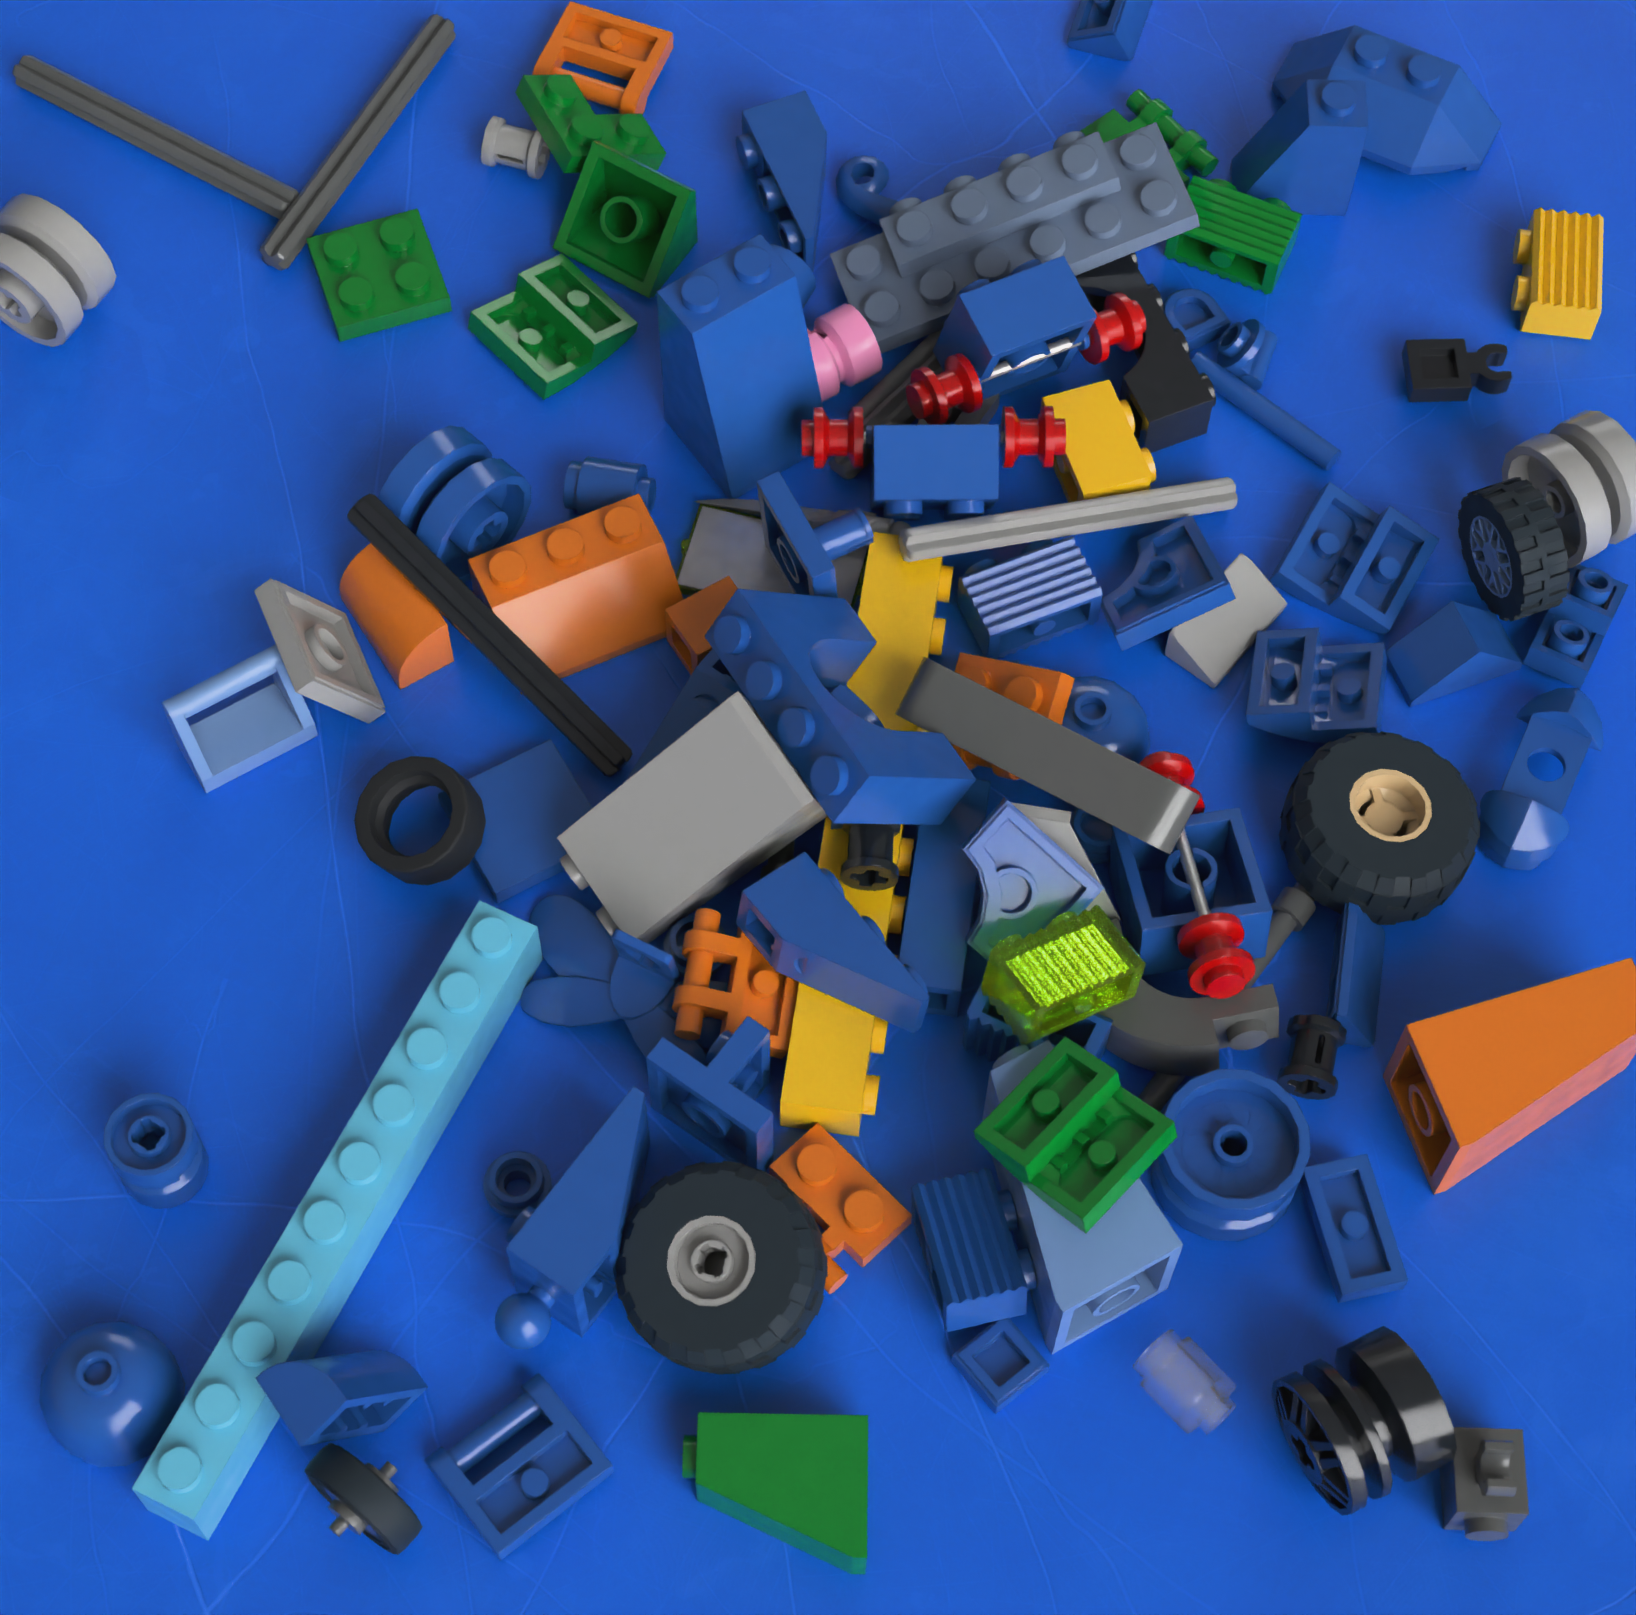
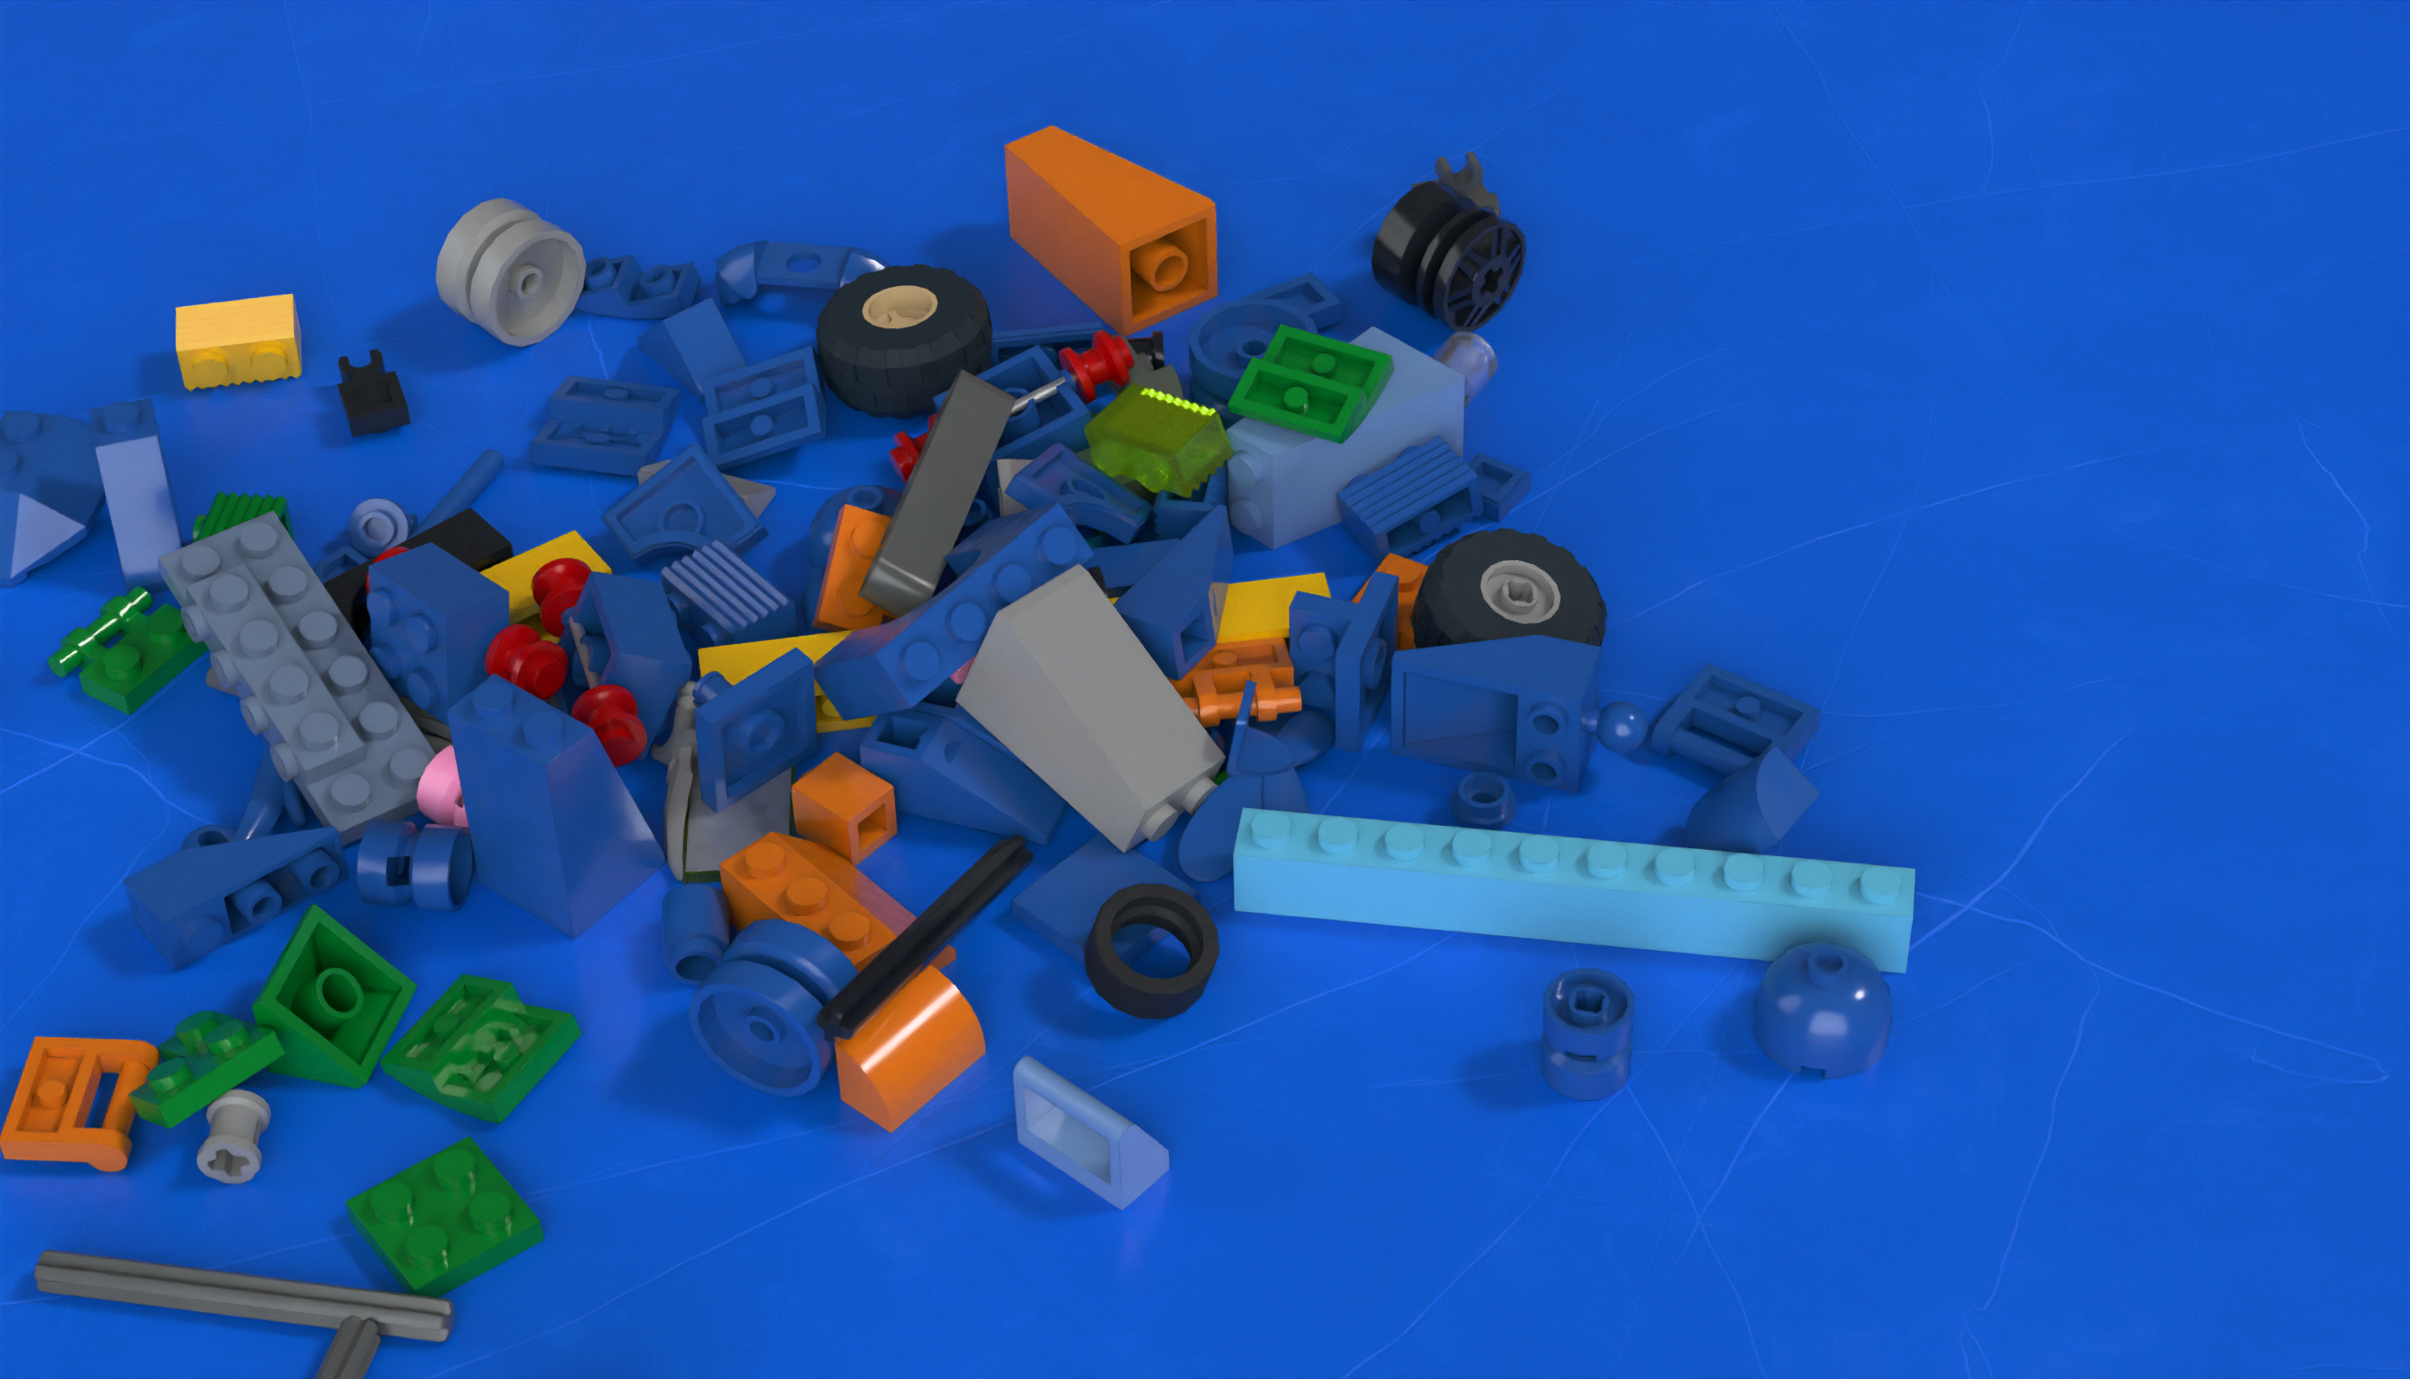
camera: 105 degrees left, 20 degrees down
(320, 651) = (991, 1067): light grey plate -> none
(363, 1498) = (1835, 775): black wheel -> none
(788, 1478) = (1653, 562): green slope -> none
(1066, 519) = (694, 621): light grey axle -> none
(1513, 549) = (590, 299): black wheel -> none

